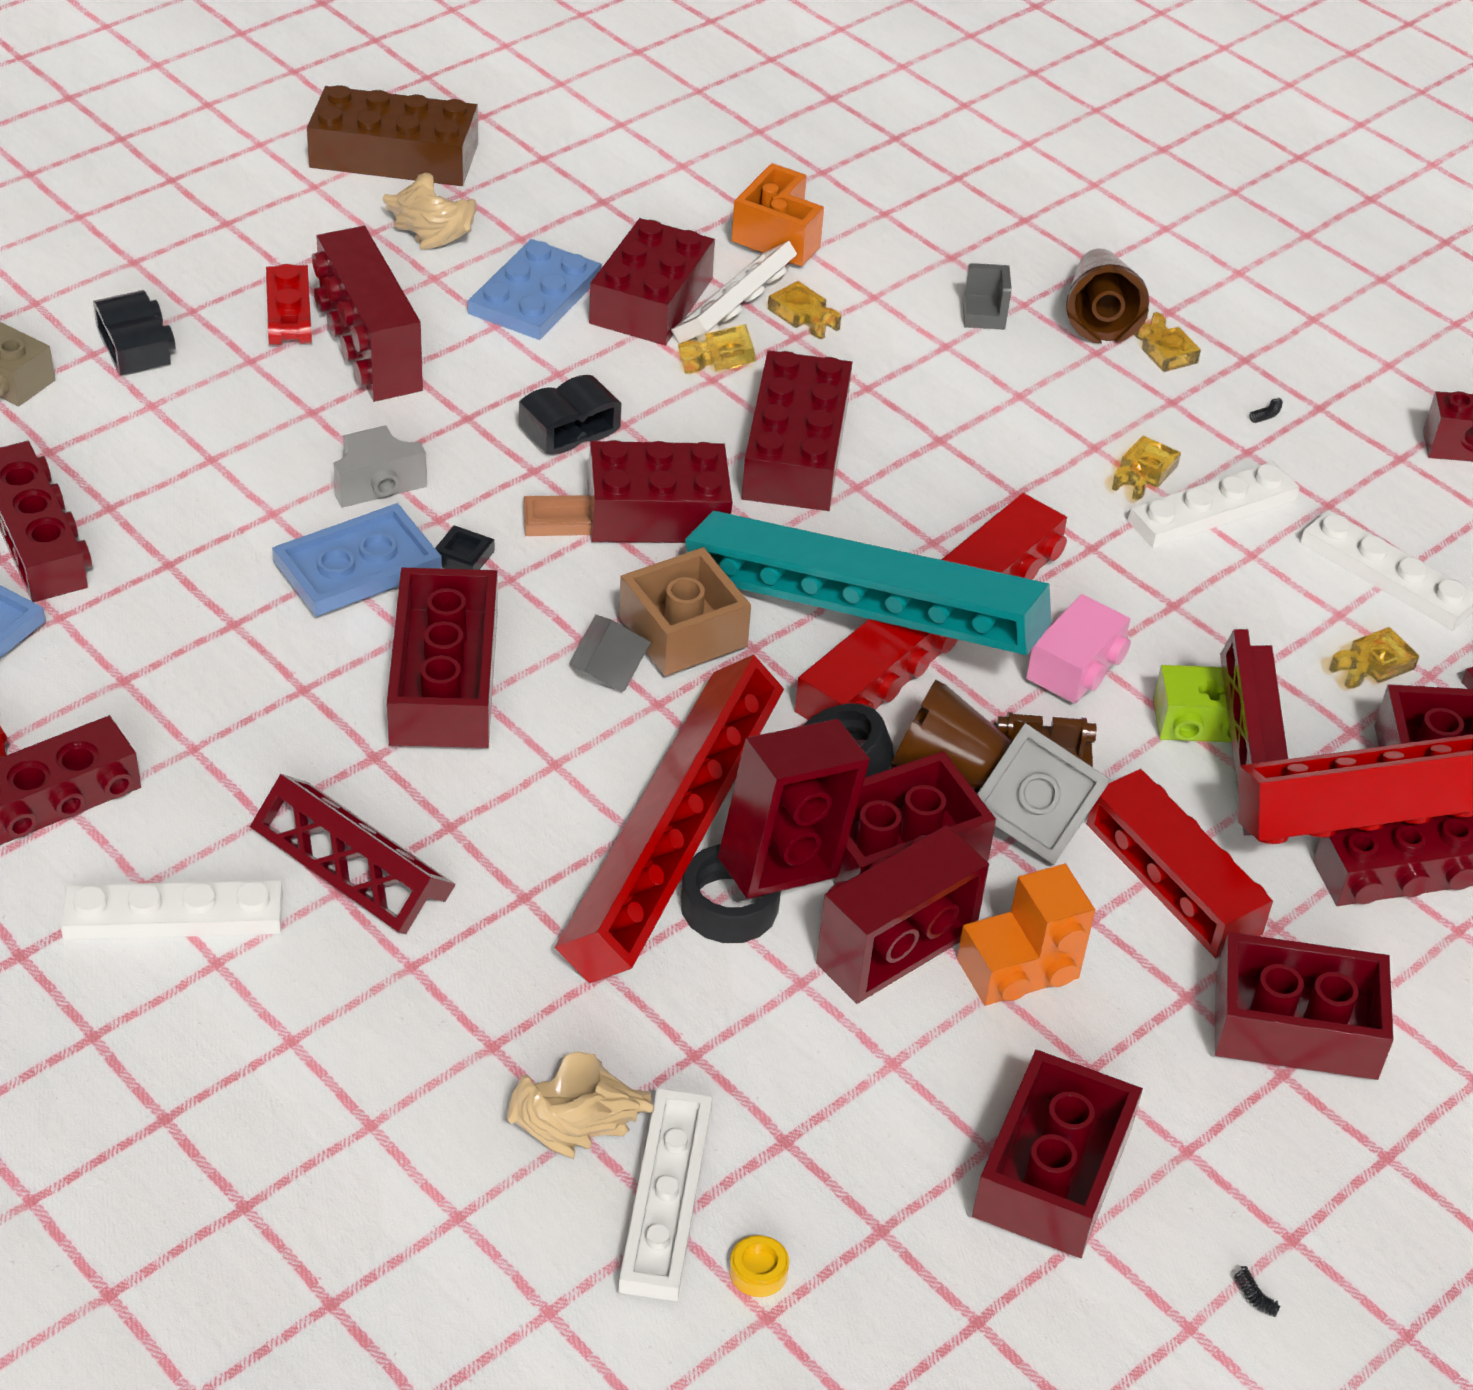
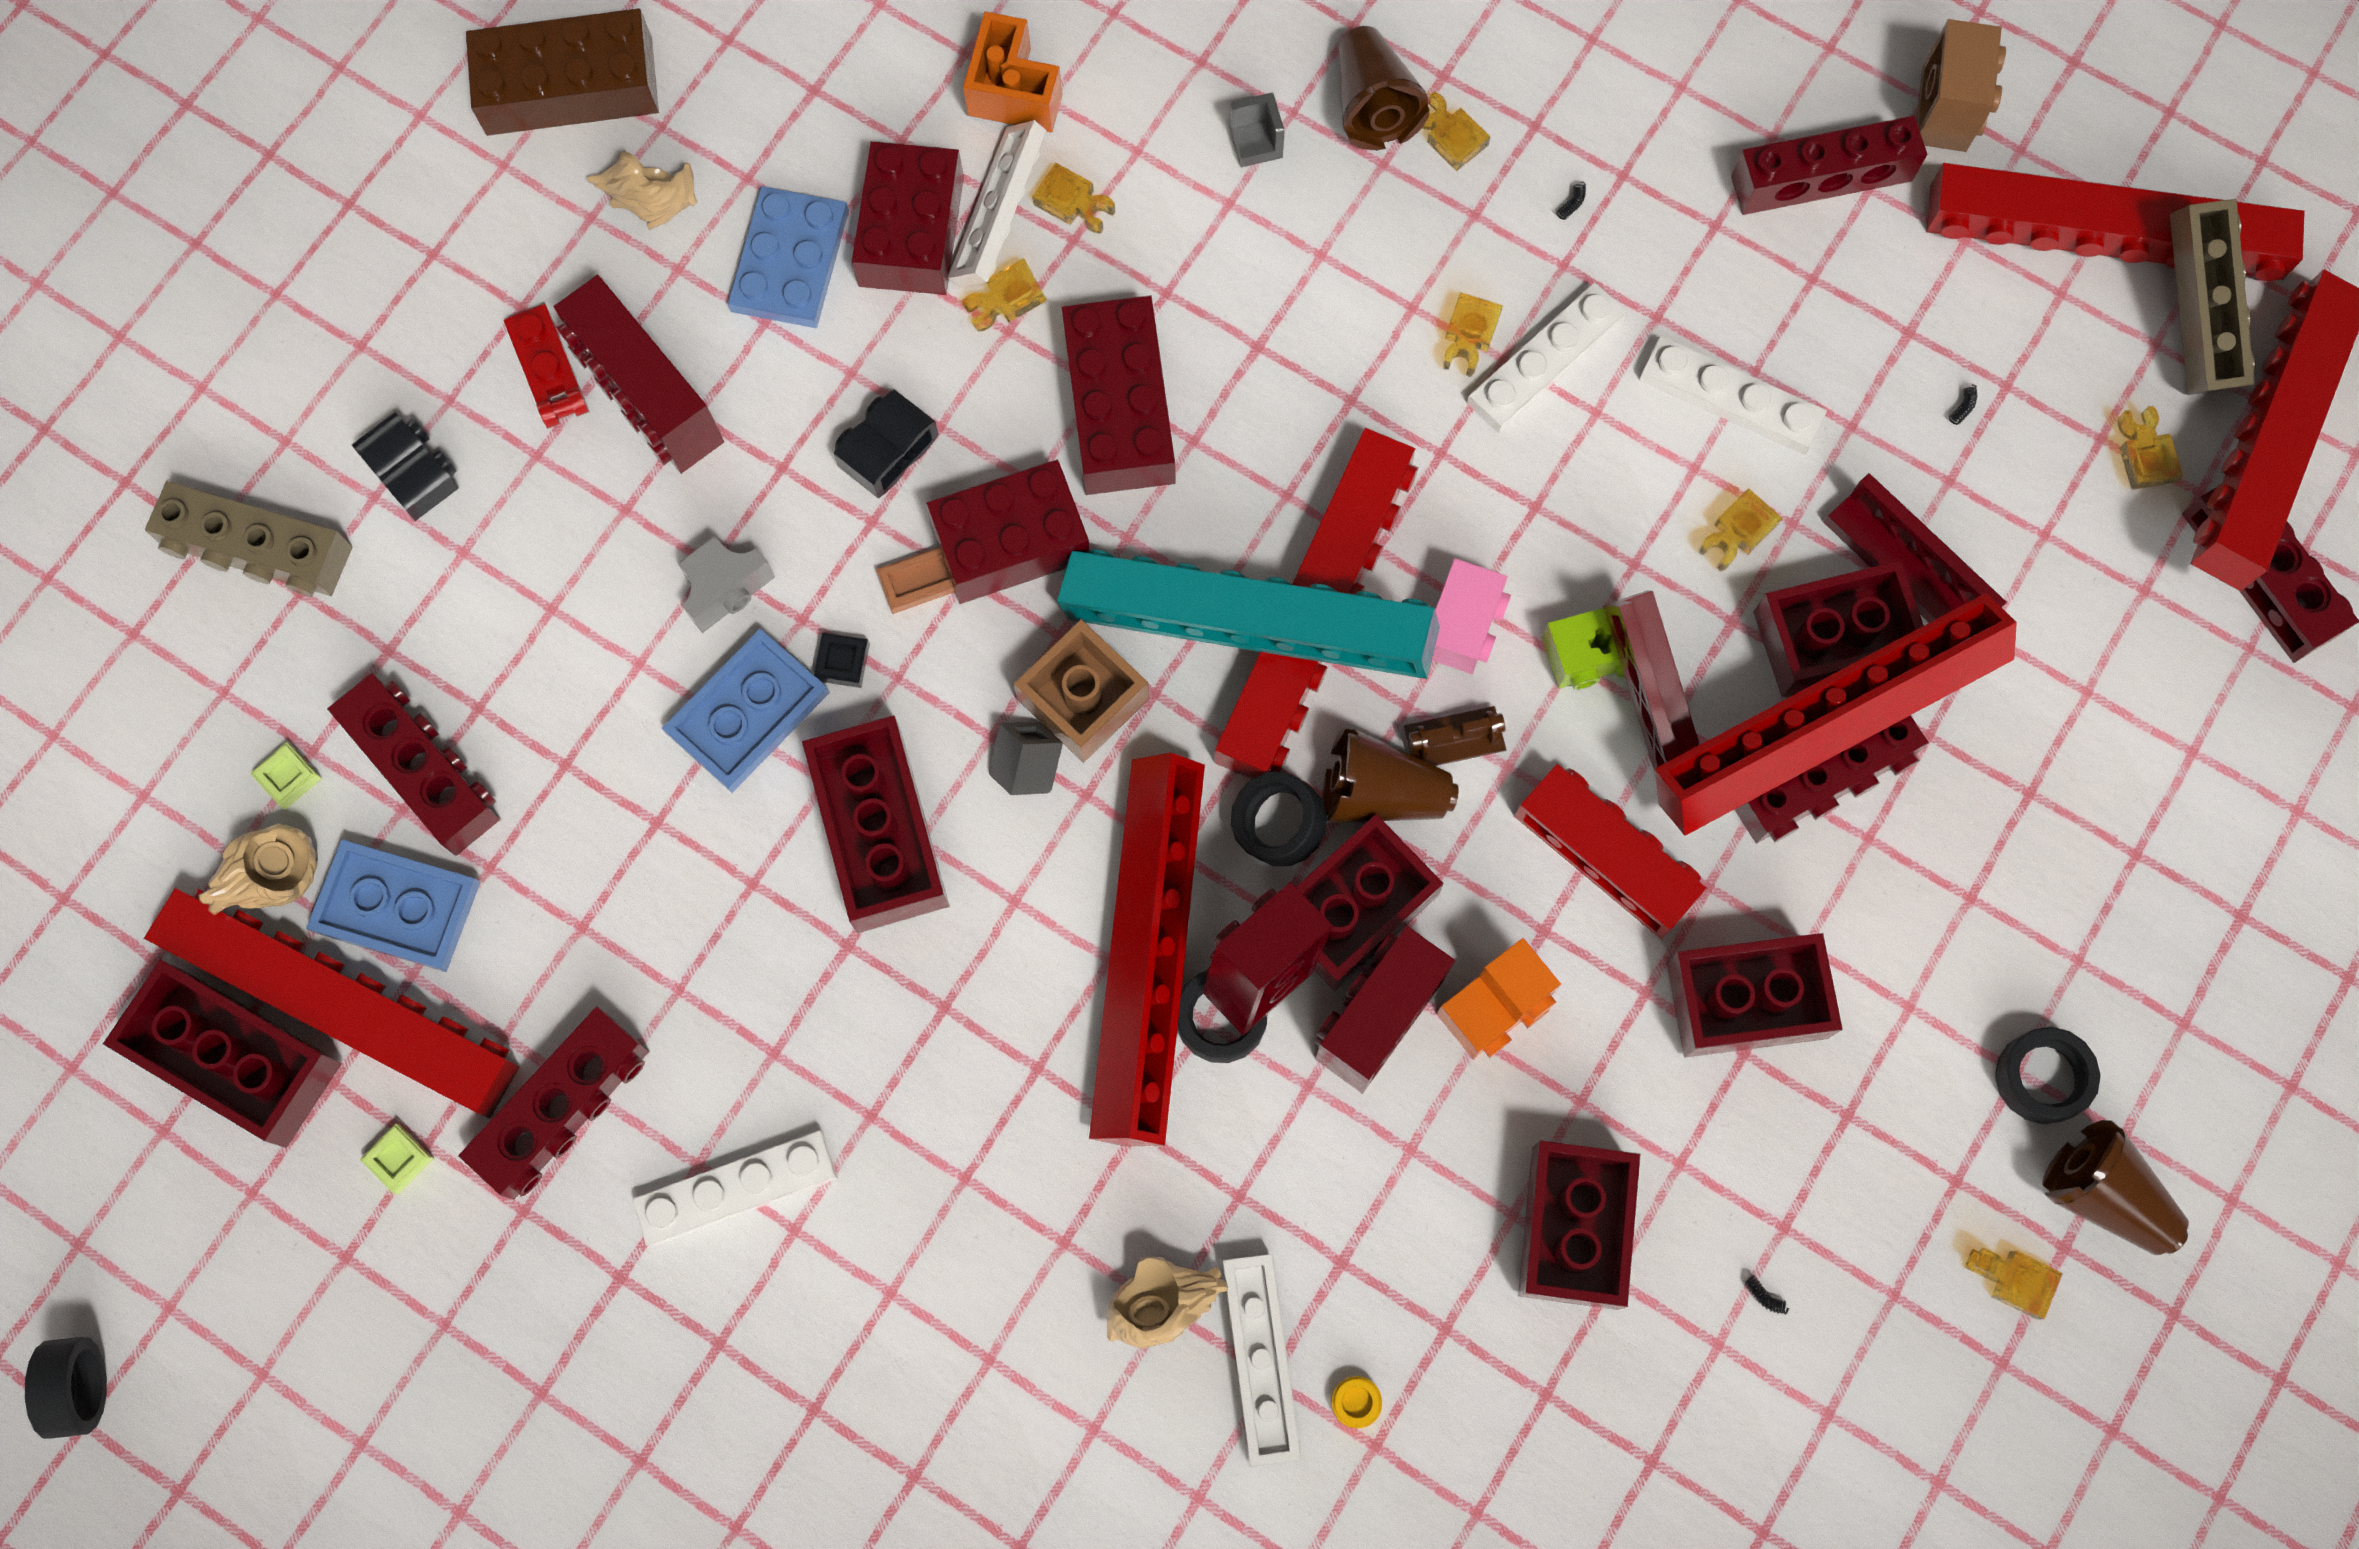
camera: 10 degrees left, 30 degrees up
(364, 841) = (870, 1066): dark red fence -> none
(1041, 793) = (1473, 826): light grey plate -> none

